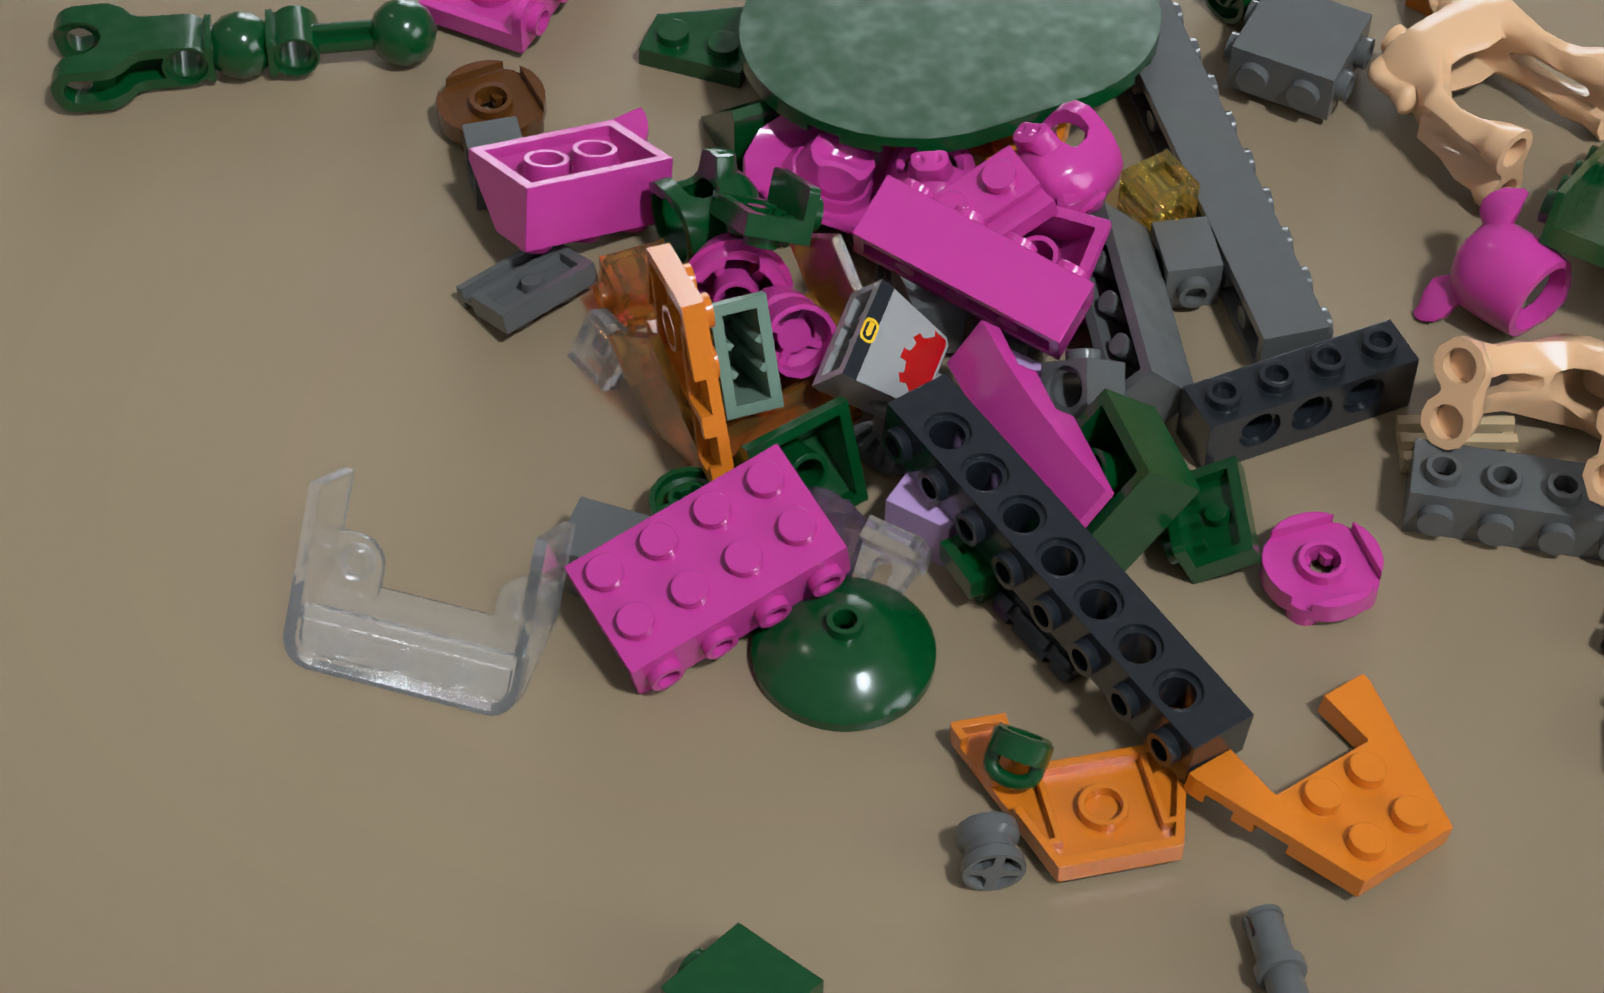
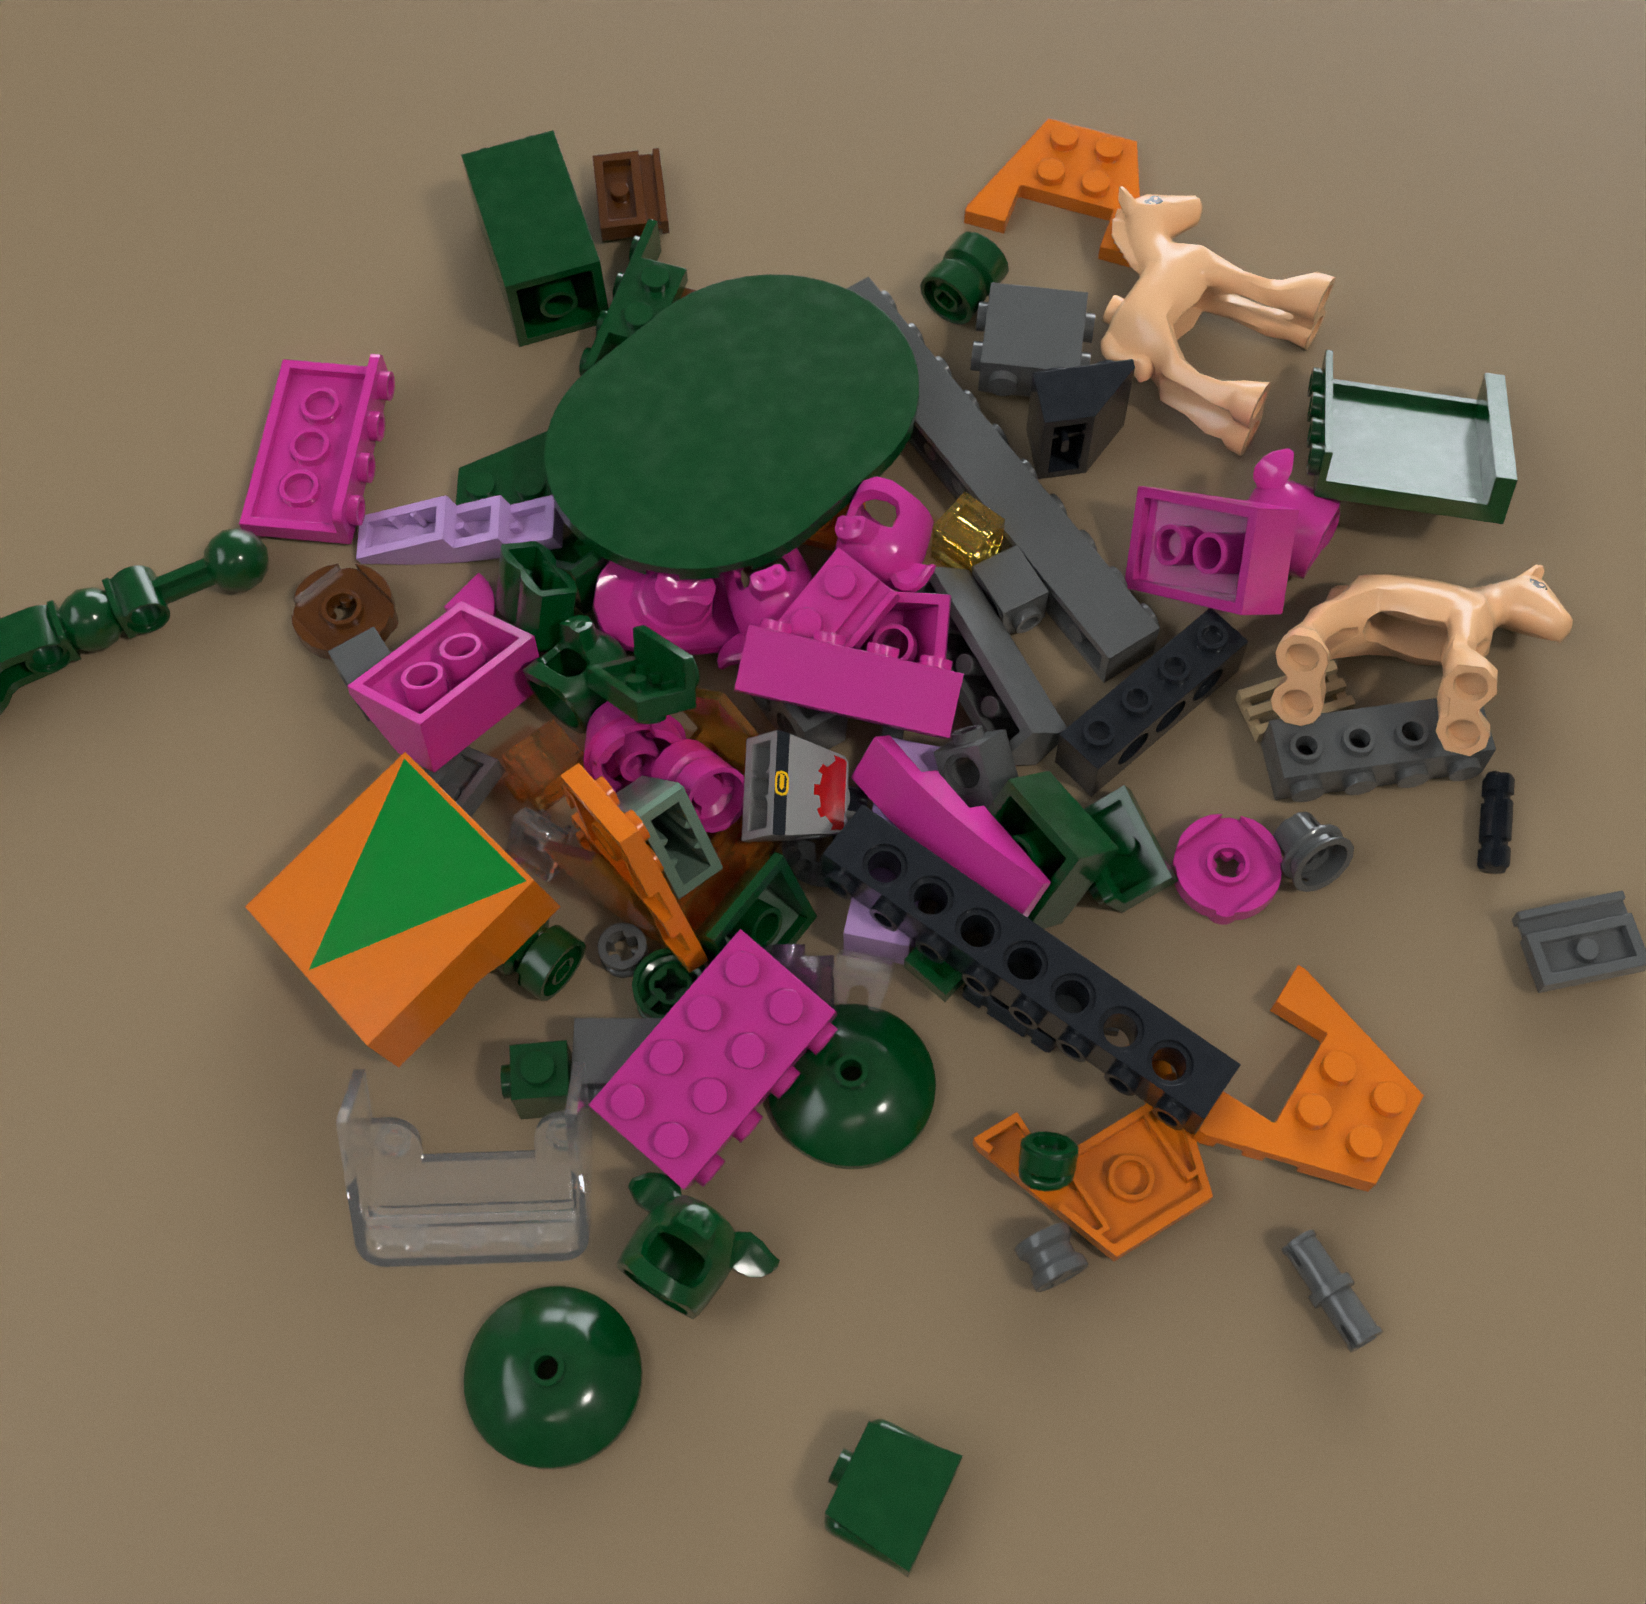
camera: 15 degrees left, 15 degrees up
(435, 839) = (577, 1410): none -> dark green dish
(448, 351) = (401, 909): none -> orange tile
(512, 537) = (537, 1078): none -> dark green brick
(563, 435) = (546, 961): none -> dark green wheel
(613, 728) = (686, 1247): none -> dark green piece
(621, 66) = (452, 533): none -> lavender slope
(651, 453) = (633, 937): none -> dark grey bush
(687, 123) = (534, 591): none -> dark green brick
(1320, 121) = (1076, 414): none -> black slope
(1412, 266) = (1211, 550): none -> dark pink slope
(1418, 575) = (1312, 851): none -> dark grey piece

